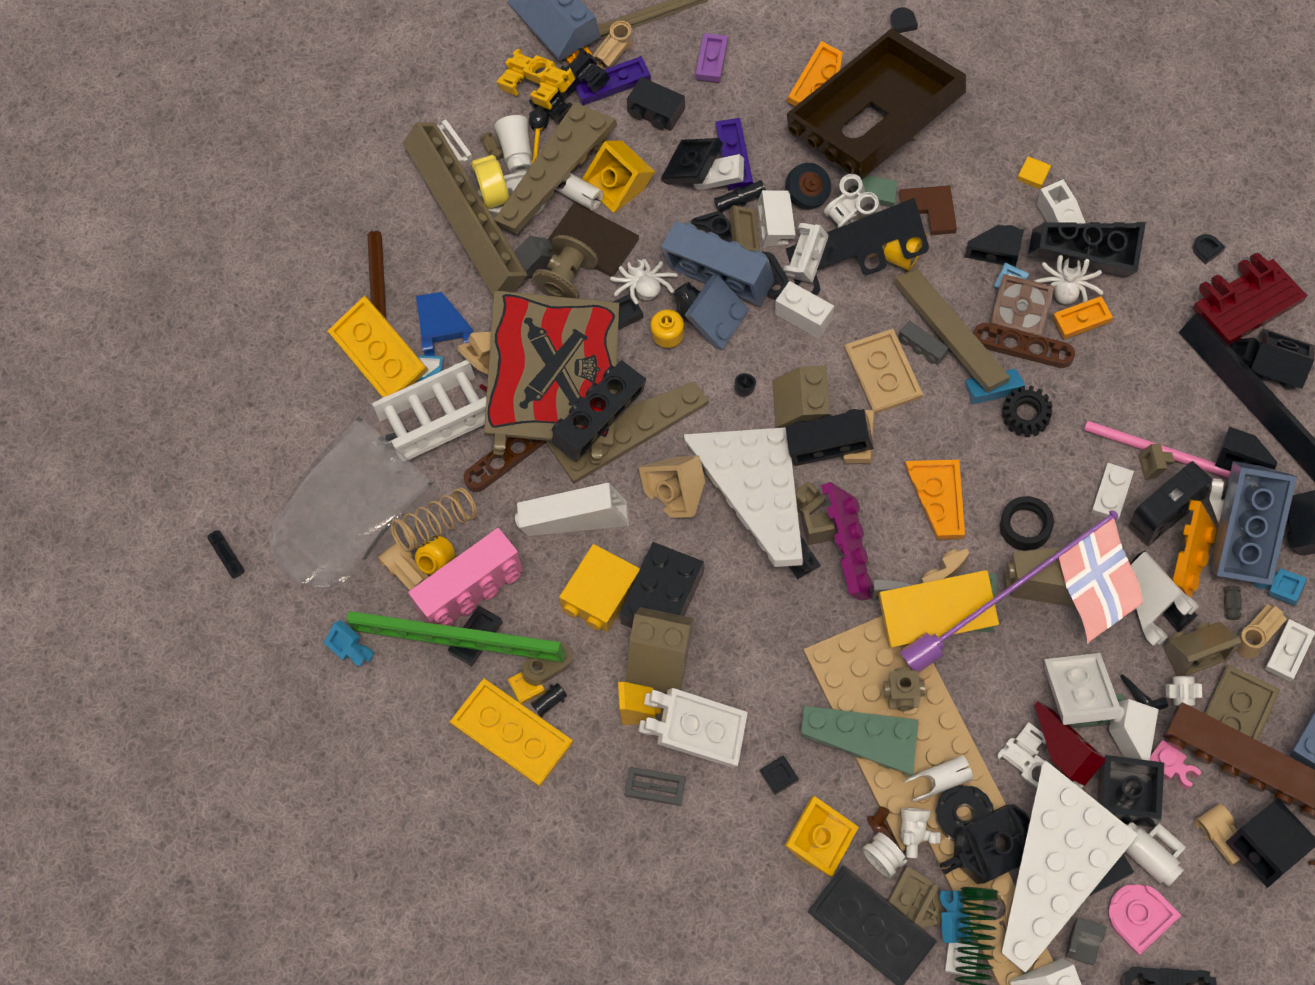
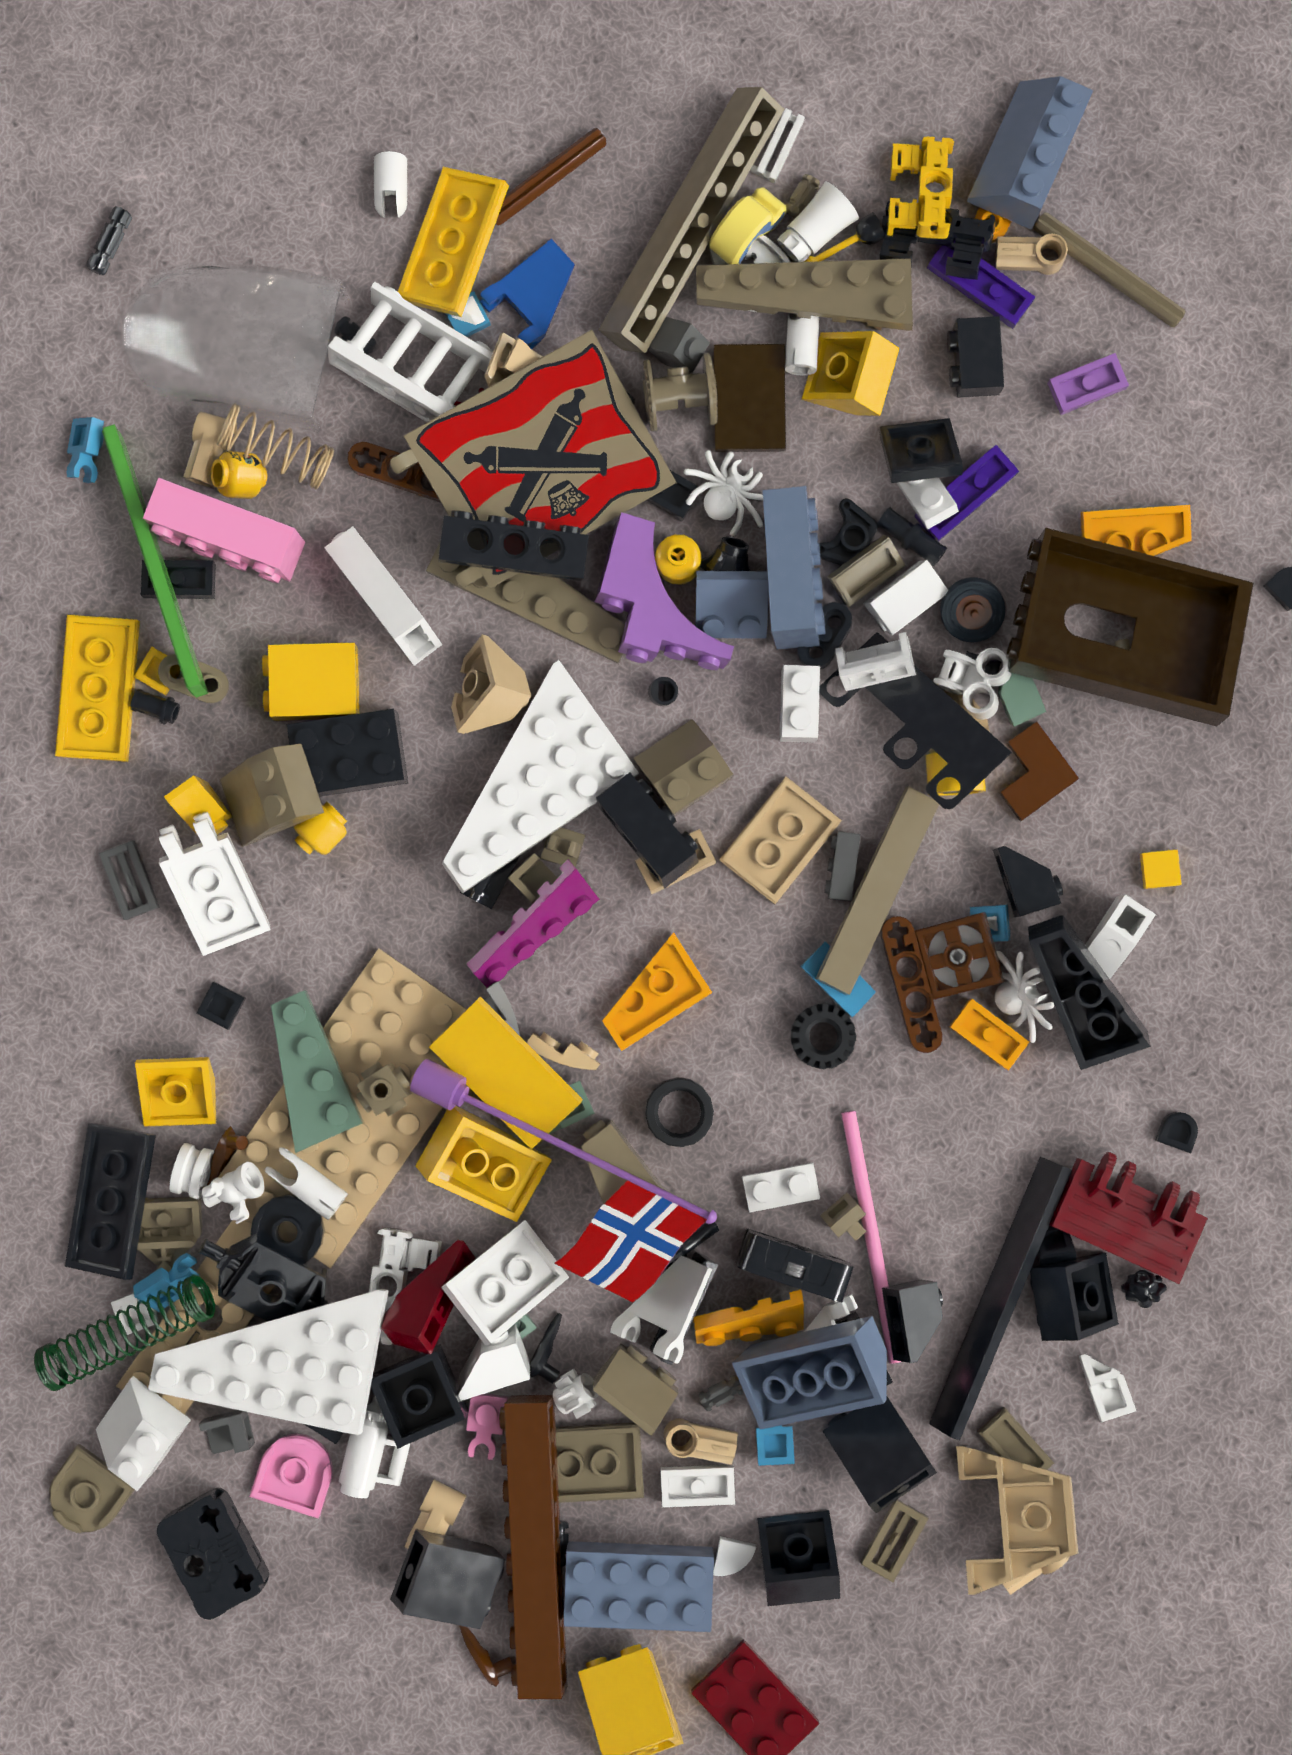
camera: 55 degrees right, 20 degrees up
(313, 364) = (390, 179): none -> white piece
(694, 362) = (653, 621): none -> medium lavender arch
(703, 640) = (322, 831): none -> yellow head
(988, 663) = (482, 1163): none -> yellow slope
(1299, 316) = (1143, 1288): none -> black plant

